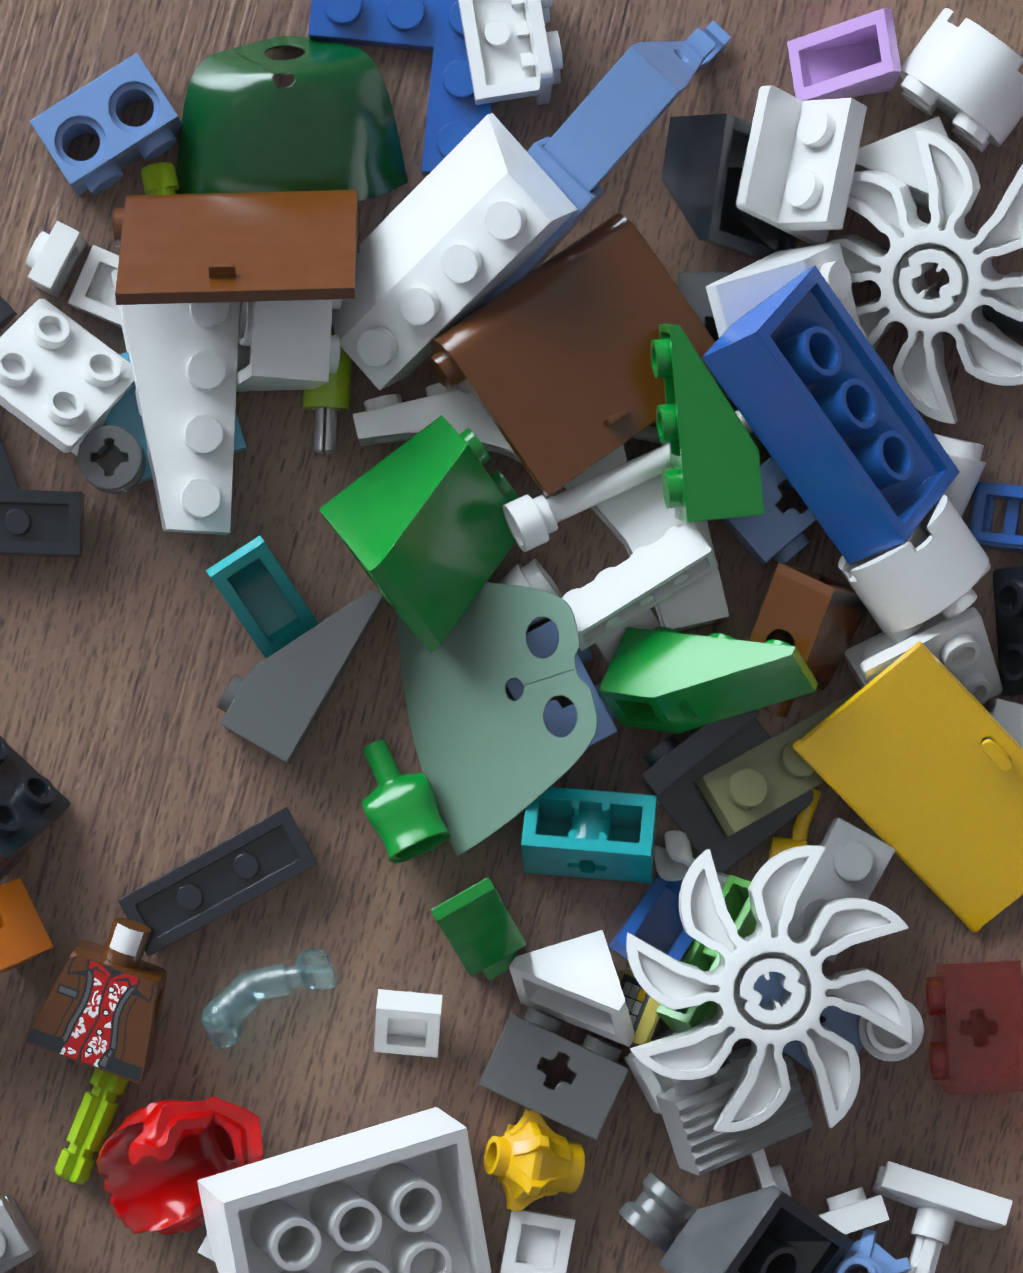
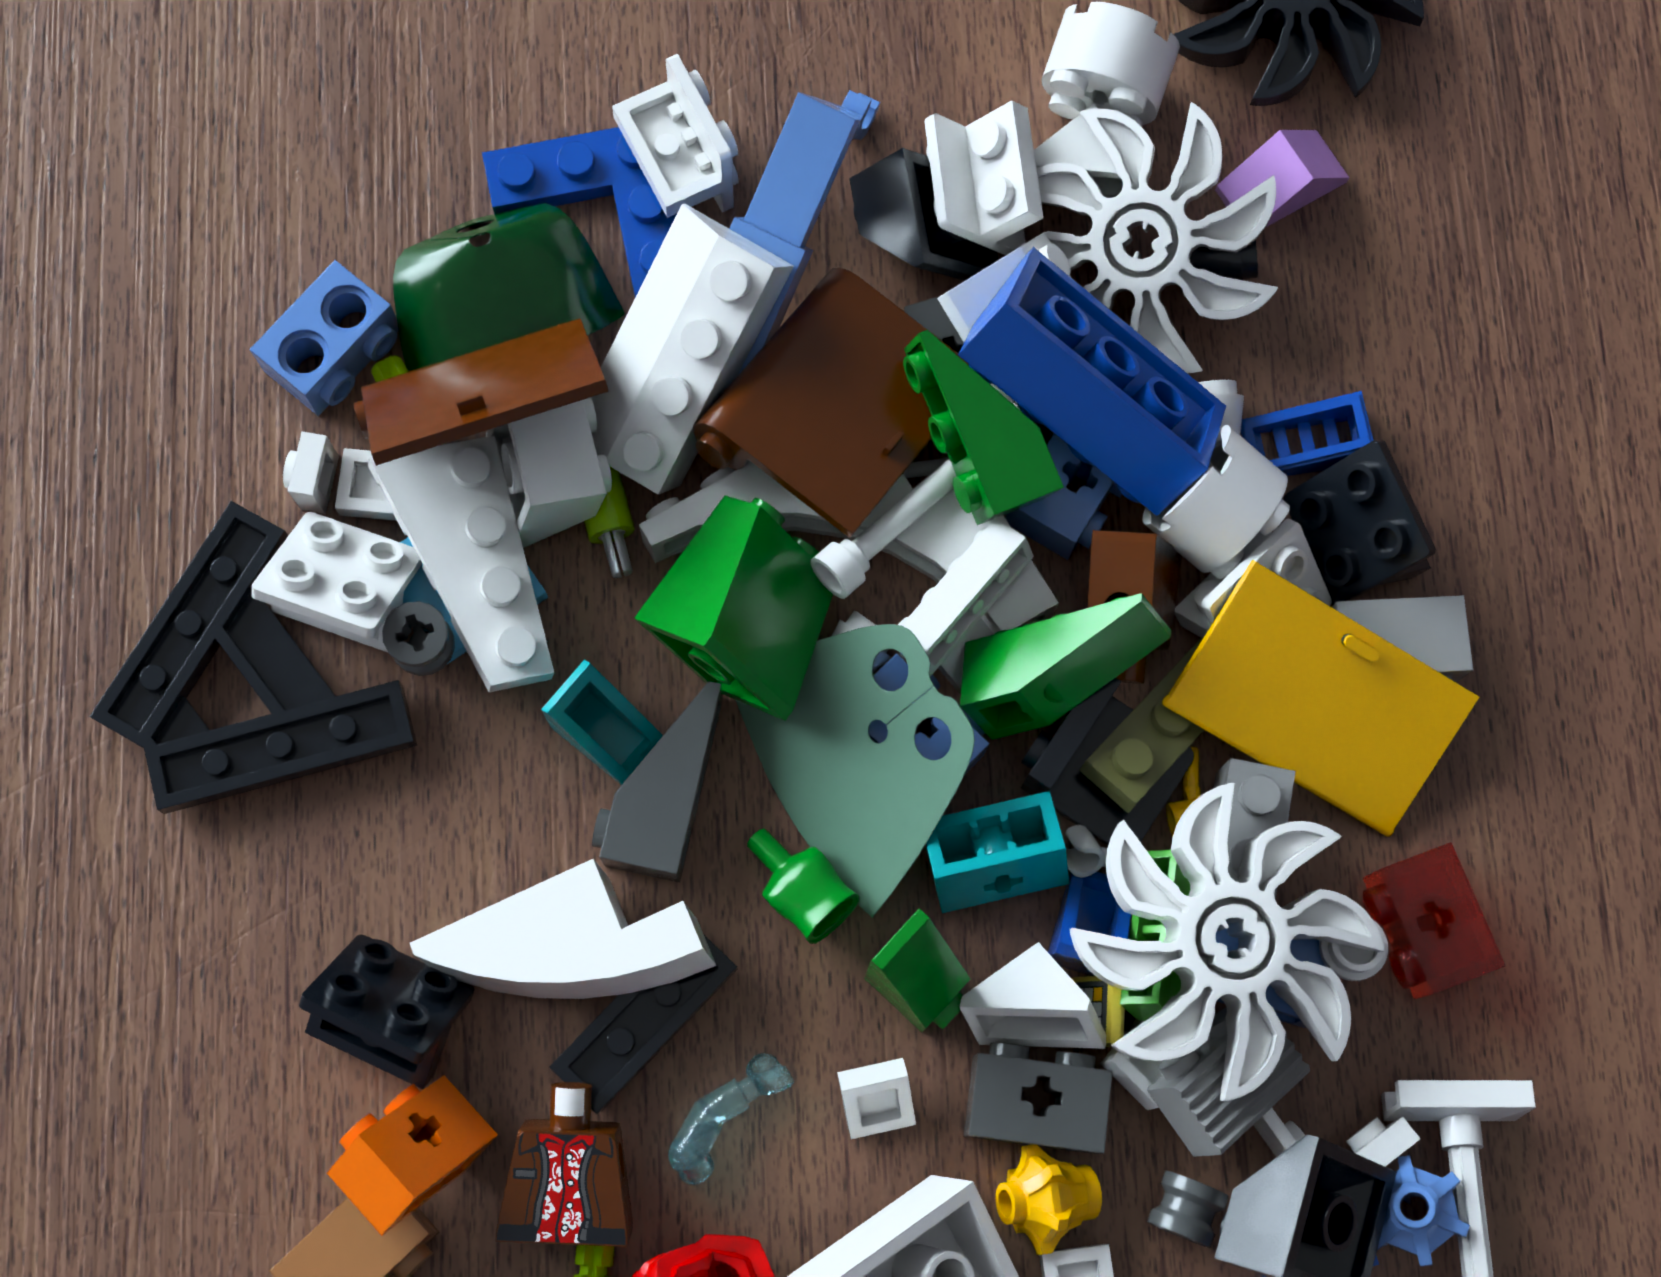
camera: 20 degrees left, 10 degrees down
(169, 793) = (568, 942): none -> white slope
(846, 59) = (997, 73): lavender slope -> none

